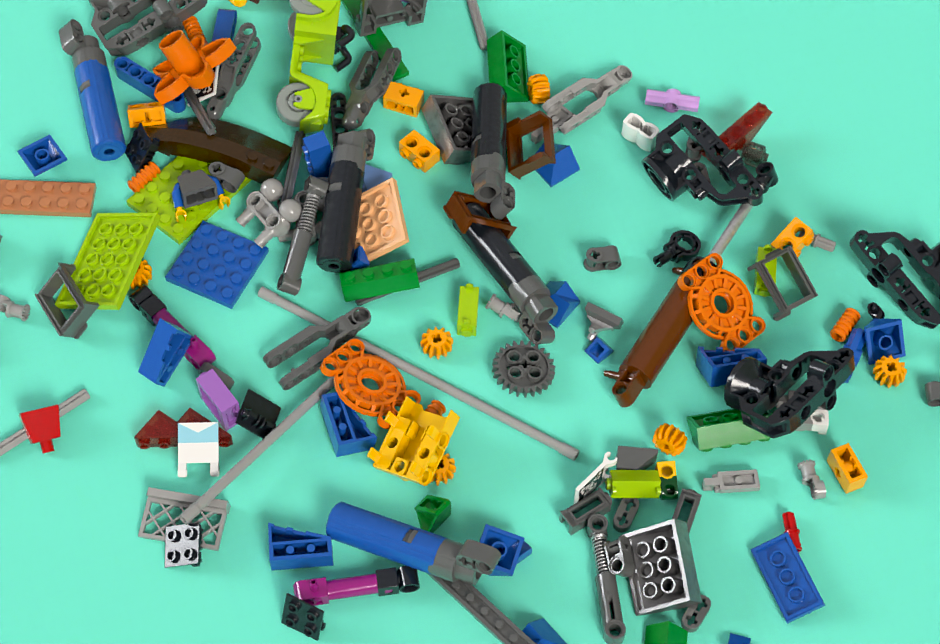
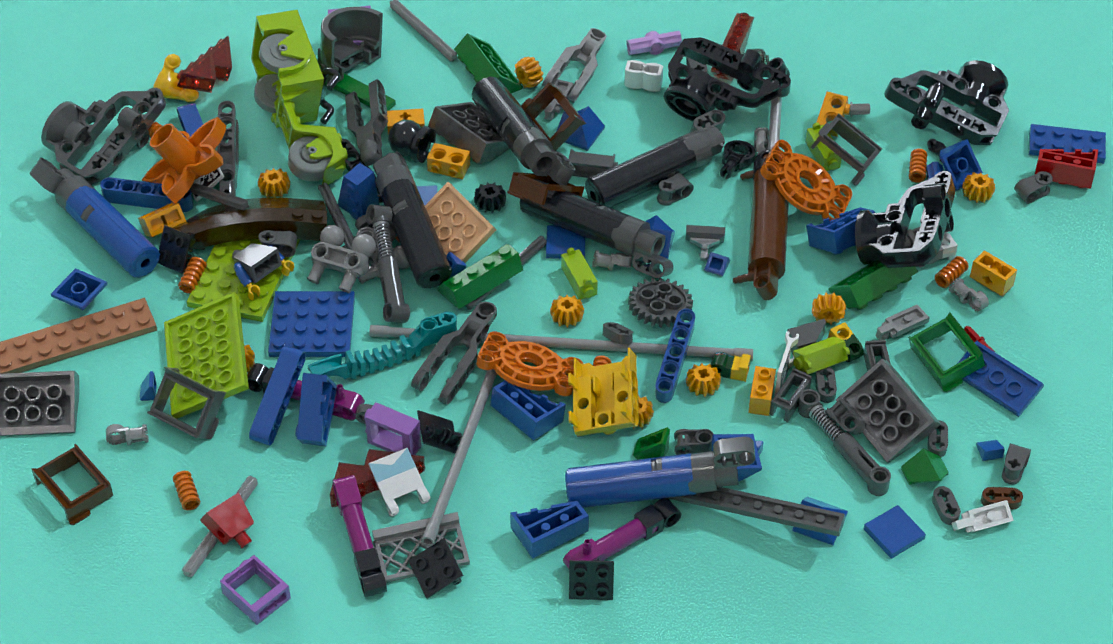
camera: 25 degrees left, 10 degrees down
(28, 380) = (186, 490): none -> orange piece
(32, 515) = (265, 605): none -> medium lavender window
(53, 266) = (148, 387): none -> blue slope
(131, 508) = (365, 554): none -> magenta piece
(142, 324) = (277, 395): none -> blue beam
(259, 114) = (274, 183): none -> light orange gear
(313, 315) = (427, 333): none -> teal piece
(396, 118) = (411, 139): none -> black tile
(433, 201) = (490, 197): none -> black gear
(467, 384) = (617, 333): none -> dark grey beam
(468, 519) = (694, 442): none -> dark grey piece
(473, 272) = (560, 240): none -> blue tile
(503, 419) = (672, 363): none -> blue beam
(516, 455) = (703, 379): none -> light orange gear
(542, 205) = (590, 164): none -> dark grey window
(549, 459) = (731, 366): none -> leg
(560, 496) = (762, 390): none -> light orange brick
(601, 229) = (660, 163): none -> black piece
(709, 242) = (761, 142): none -> light grey connector
(748, 558) = (953, 376): none -> green piece
(810, 448) = (951, 271): none -> orange piece

